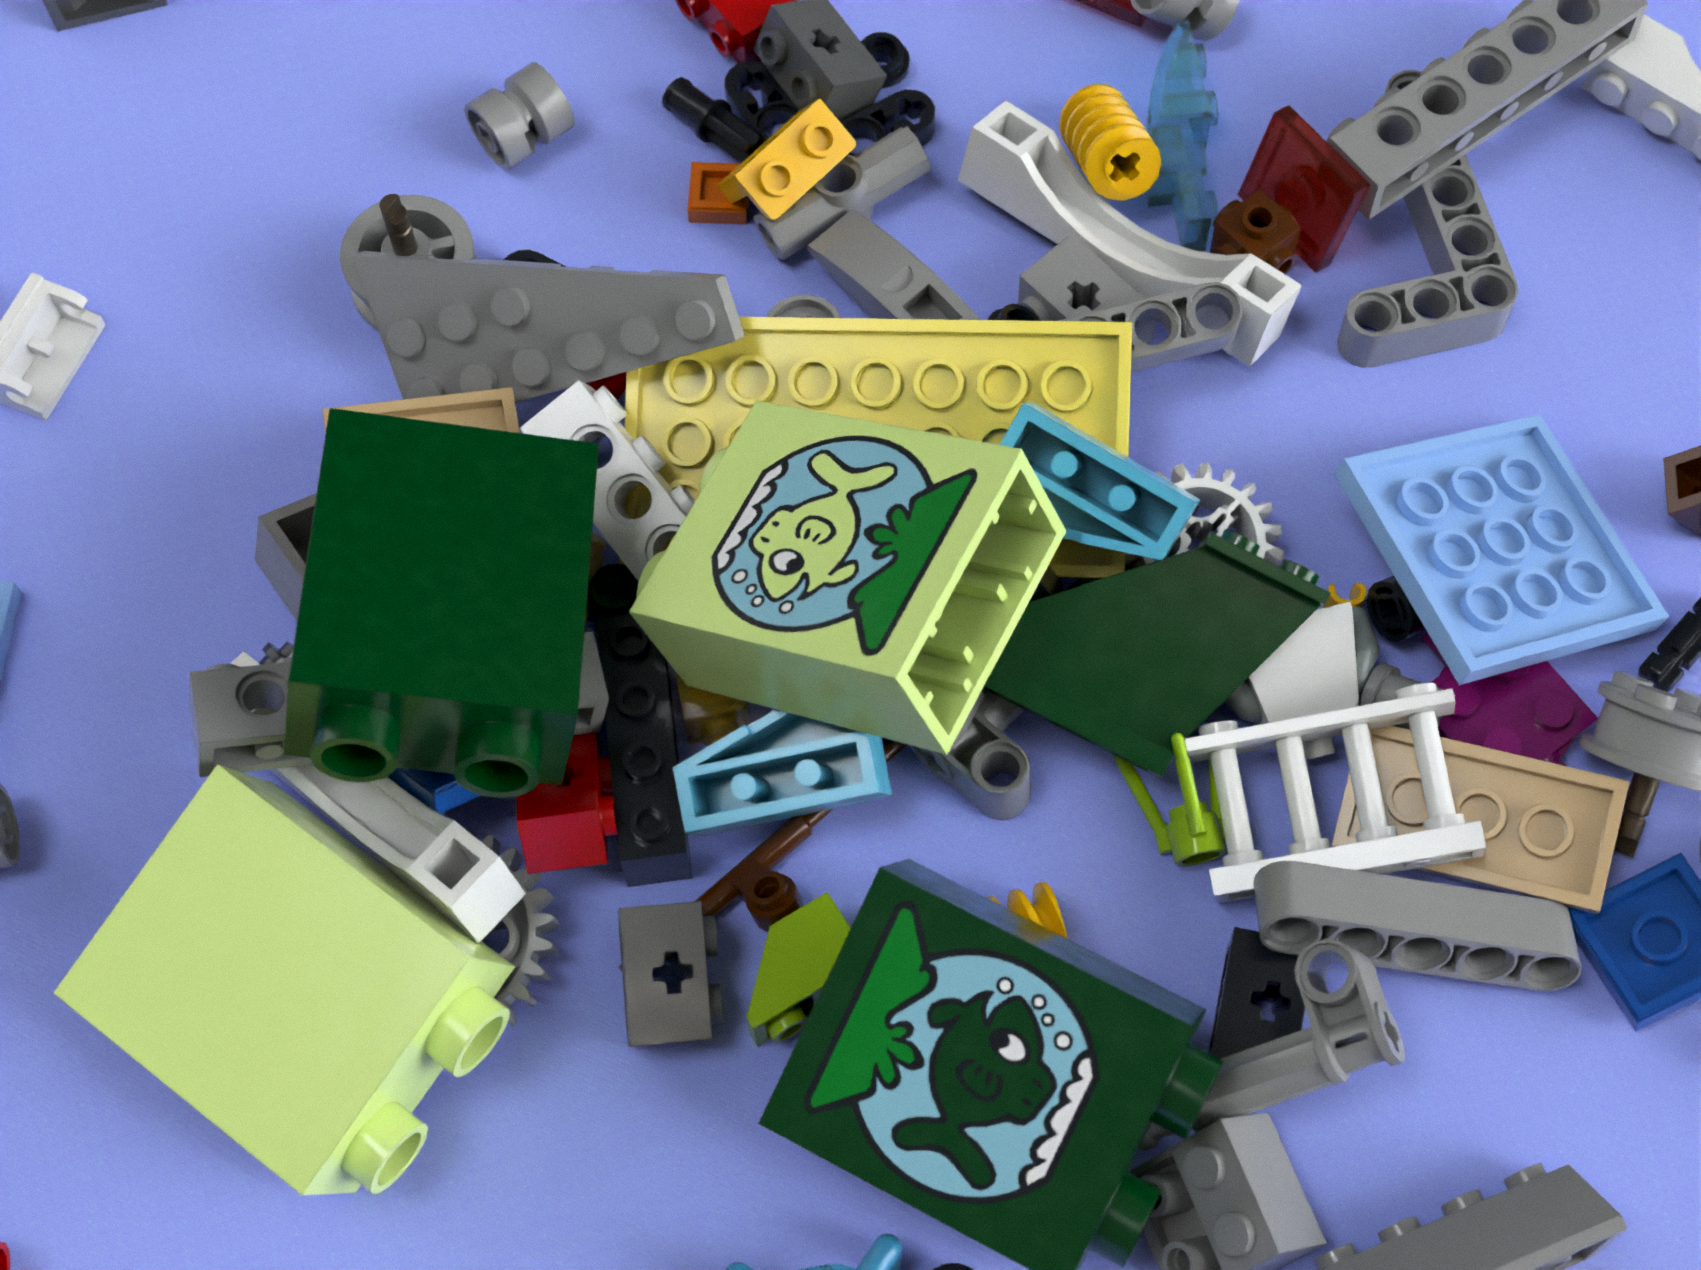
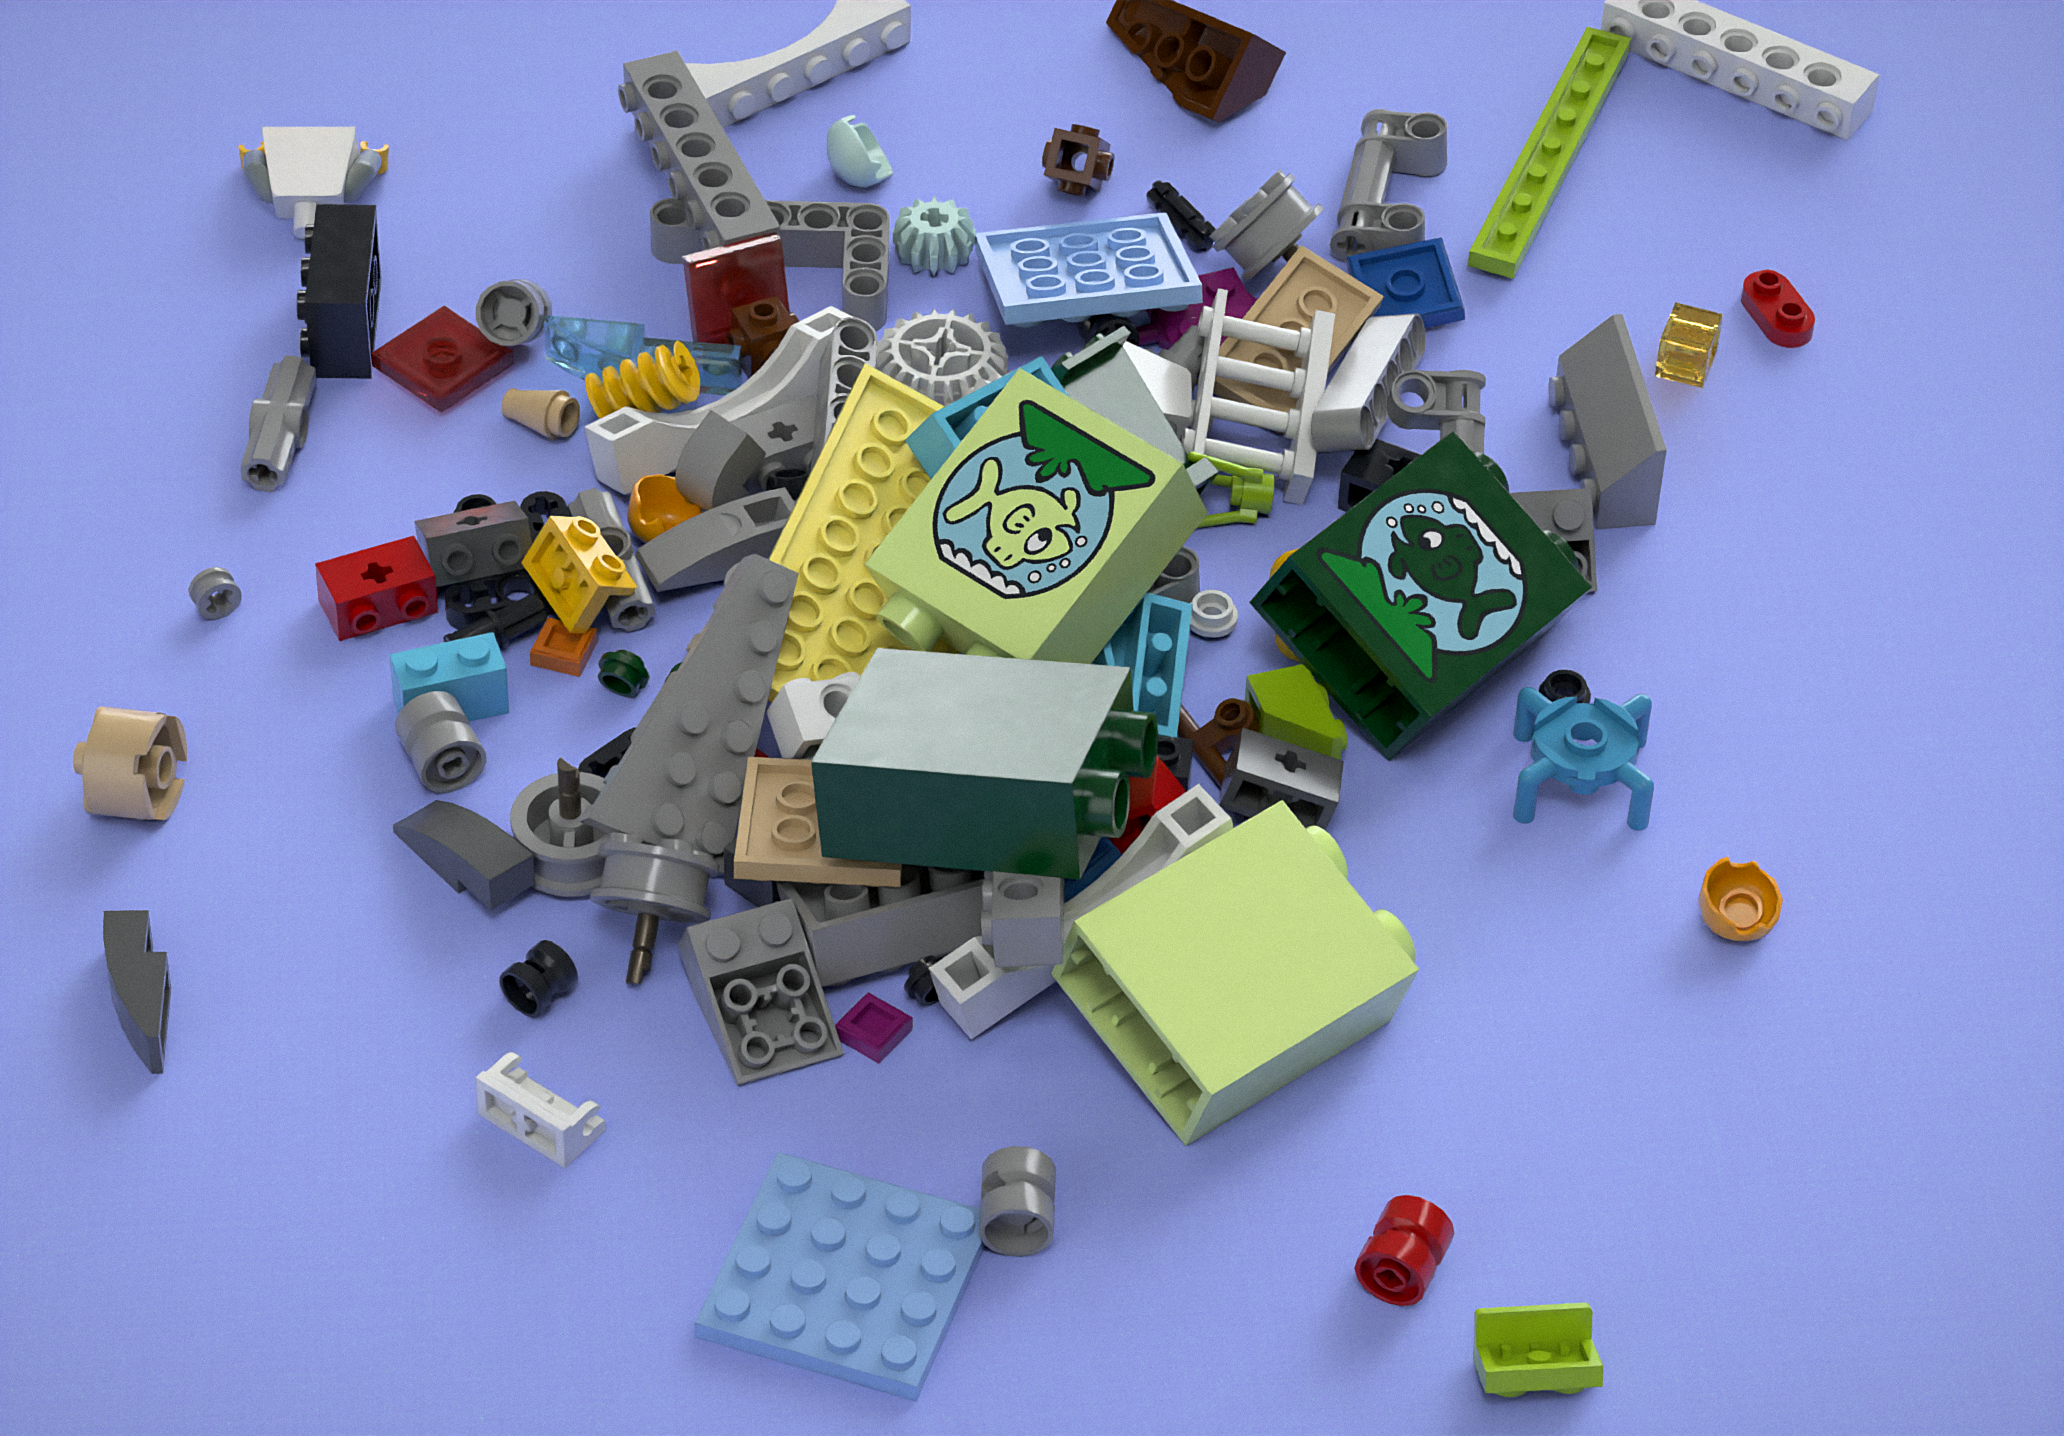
camera: 80 degrees left, 20 degrees down
(205, 513) = (760, 991): none -> light grey slope
(215, 298) = (543, 973): none -> black wheel
(223, 630) = (873, 1027): none -> magenta tile
(320, 353) = (655, 886): none -> light grey wheel
(394, 162) = (468, 852): none -> dark grey slope
(609, 100) = (463, 667): none -> medium azure brick
(679, 249) = (622, 673): none -> dark green plate
(932, 218) = (657, 507): none -> light orange hair
(966, 819) = (1213, 614): none -> white plate
(985, 248) = (716, 463): none -> light grey brick
(1063, 69) = (545, 411): none -> tan cone
(1313, 418) = (941, 354): none -> white gear
(1515, 371) = (934, 236): none -> light aqua gear
(1624, 255) = (856, 154): none -> light aqua hair

